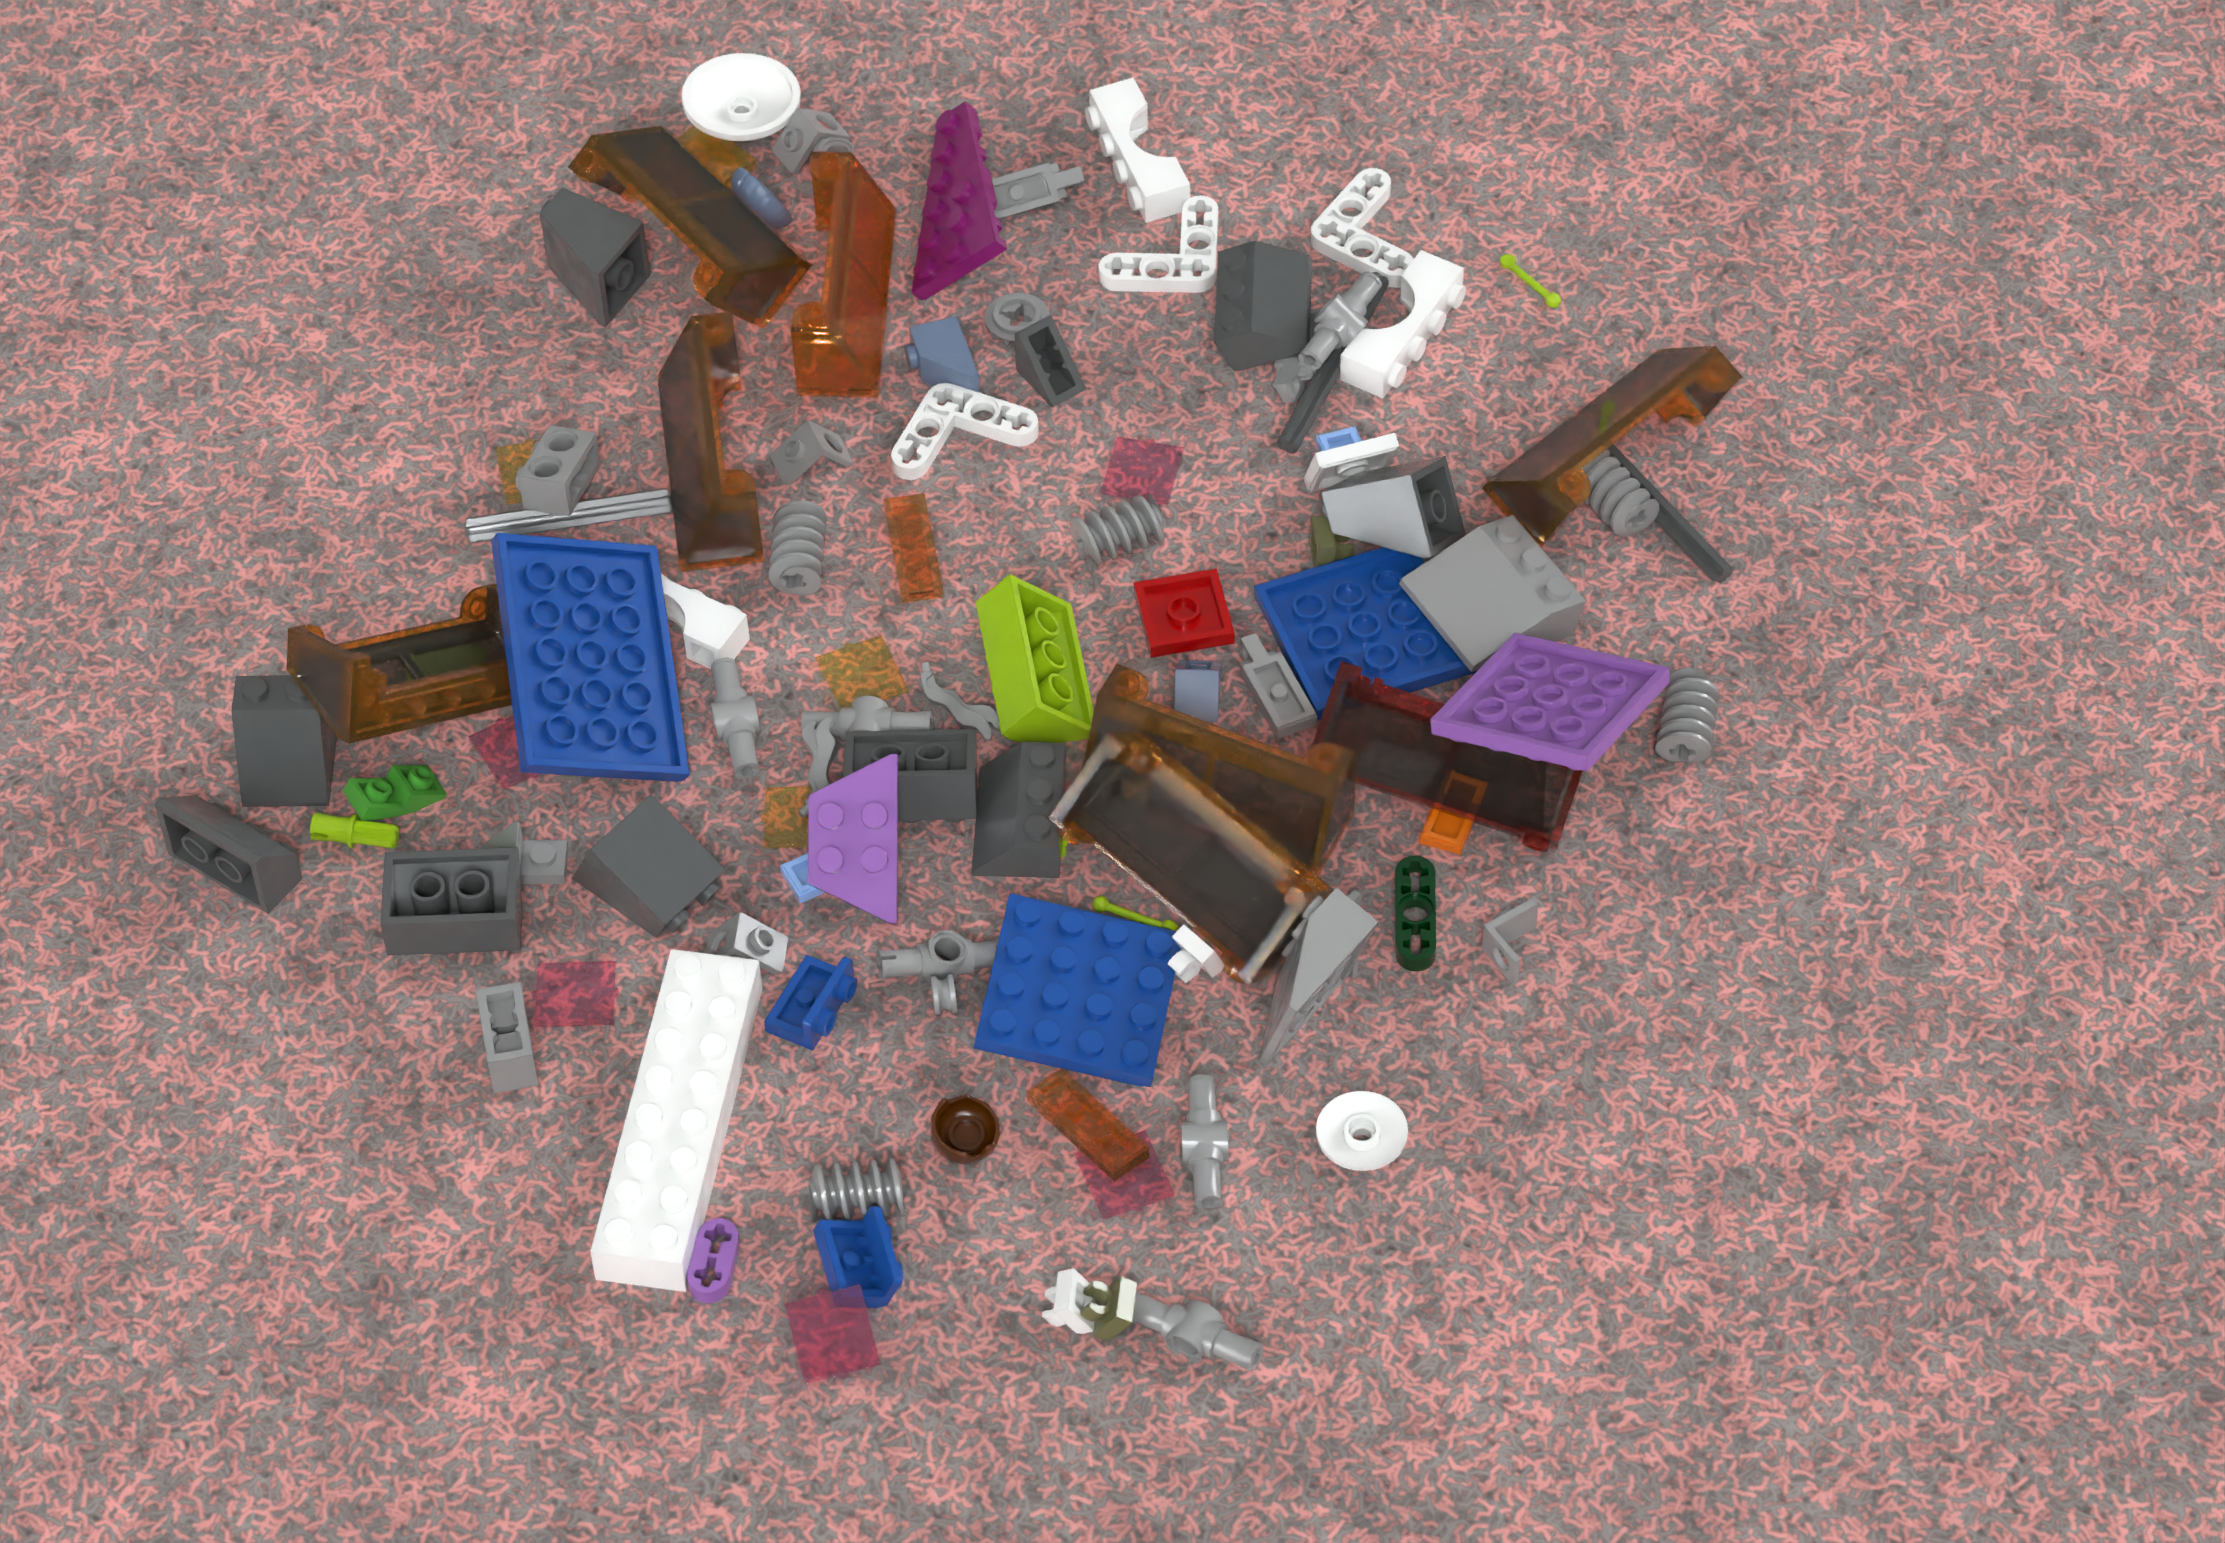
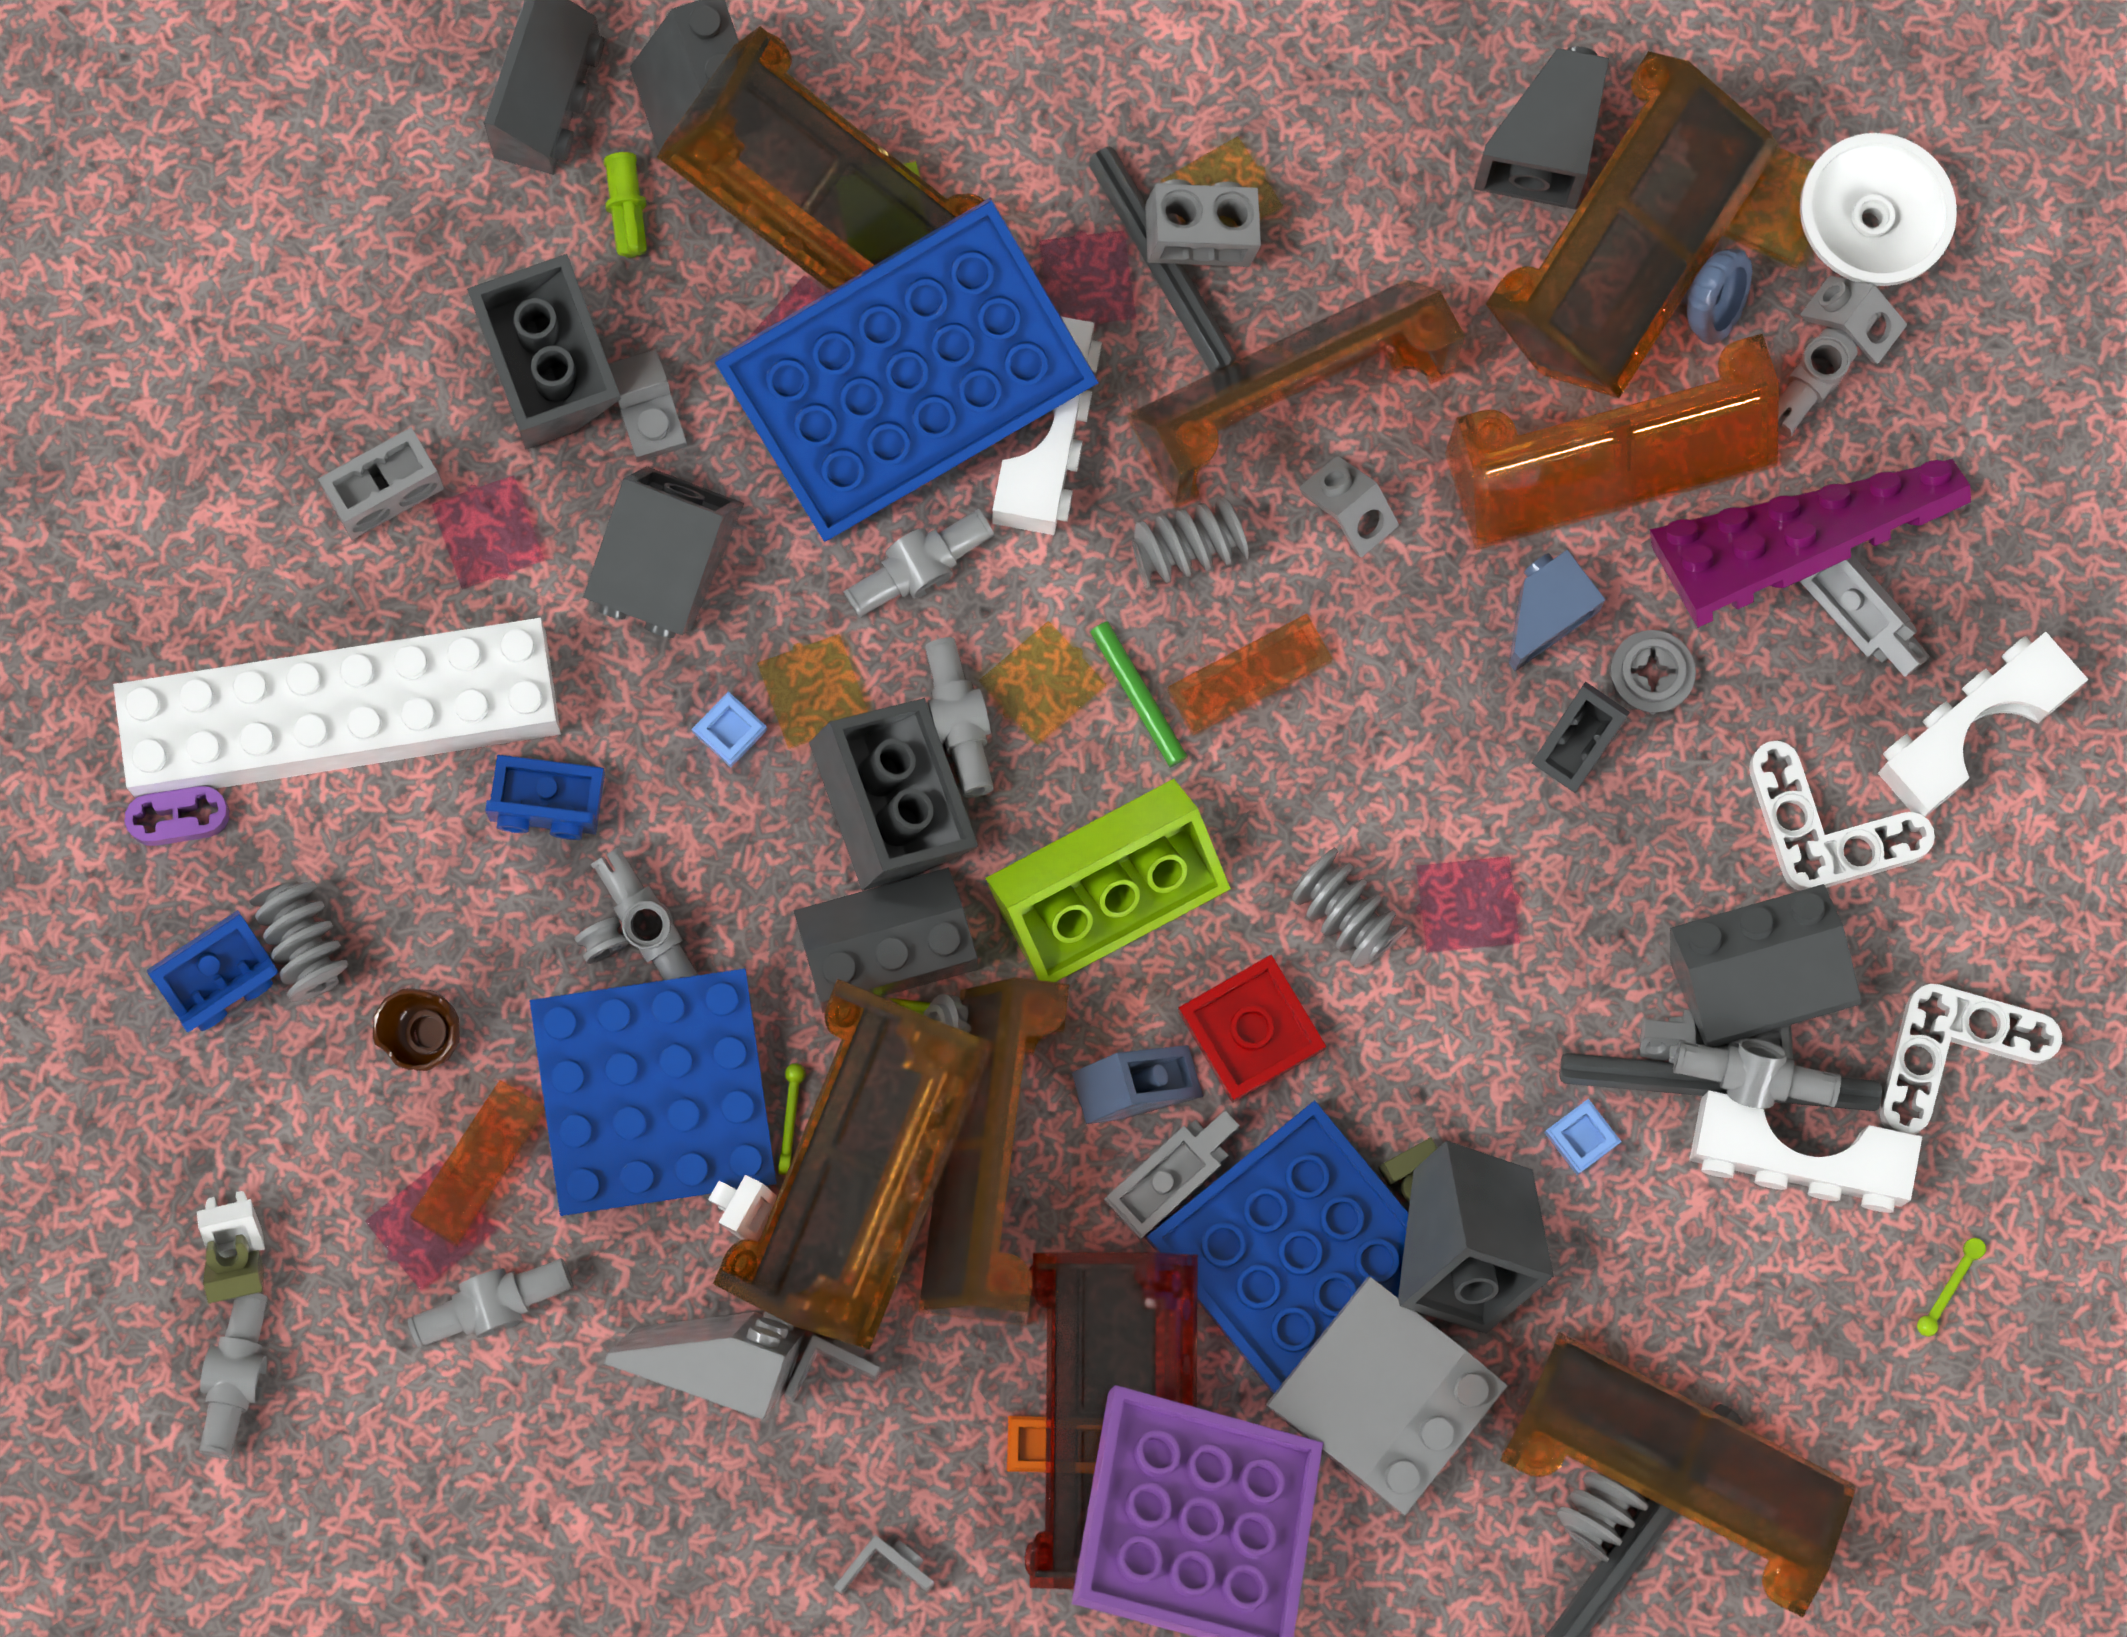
camera: 65 degrees right, 25 degrees up
(400, 793) = (691, 227): bright green slope -> none
(750, 941) = (602, 698): light grey bracket -> none
(822, 748) = (896, 681): light grey hair -> none
(832, 1334) = (109, 980): clear pink piece -> none
(857, 839) = (763, 769): medium lavender wing -> none
(897, 617) = (1138, 694): none -> bright green bar
(948, 416) = (1460, 642): white beam -> none
(964, 715) = (1016, 823): light grey hair -> none
(1342, 462) = (1535, 1158): white tile -> none
(1365, 1115) = (527, 1473): white dish -> none
(1423, 899) = (930, 1420): dark green beam -> none

